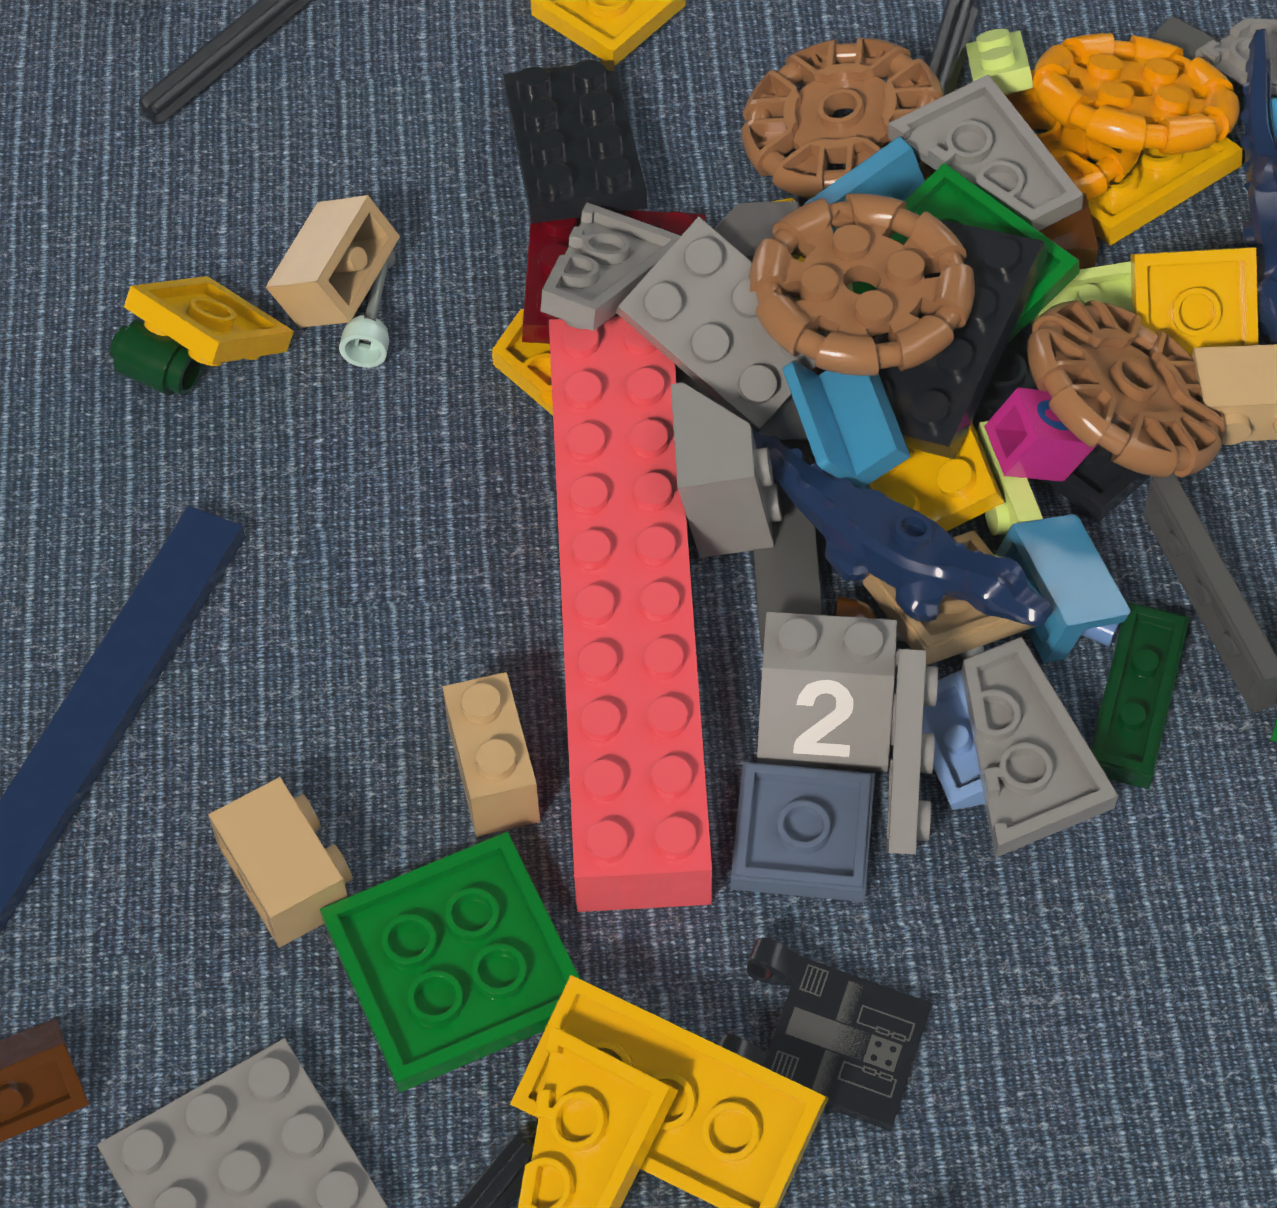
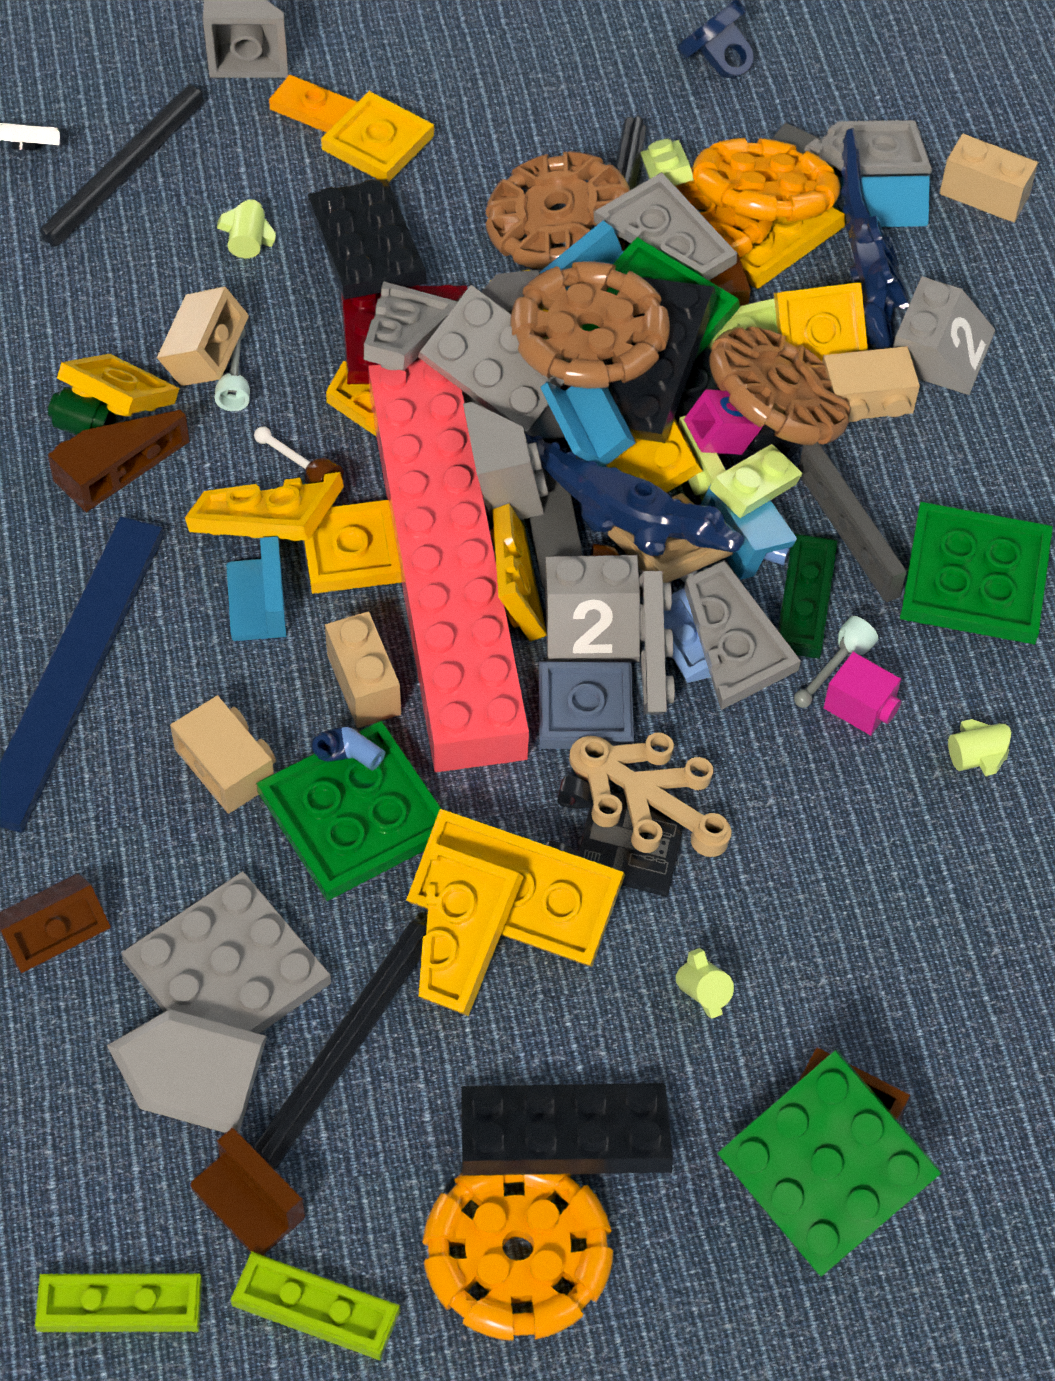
camera: 10 degrees left, 0 degrees up
(191, 418) = (113, 455): none -> reddish brown slope
(361, 632) = (257, 595): none -> dark azure panel
(396, 519) = (283, 512): none -> yellow wing
(414, 117) = (246, 229): none -> yellowish green piece
(452, 864) = (347, 744): none -> arm
(471, 467) = (314, 470): none -> hinge
(497, 573) = (353, 548): none -> yellow plate
(723, 631) = (515, 573): none -> yellow wing
(875, 965) = (647, 788): none -> tan plant
(1079, 523) = (755, 480): none -> yellowish green plate
(1200, 765) = (854, 636): none -> hinge
(1206, 850) = (863, 694): none -> dark pink brick

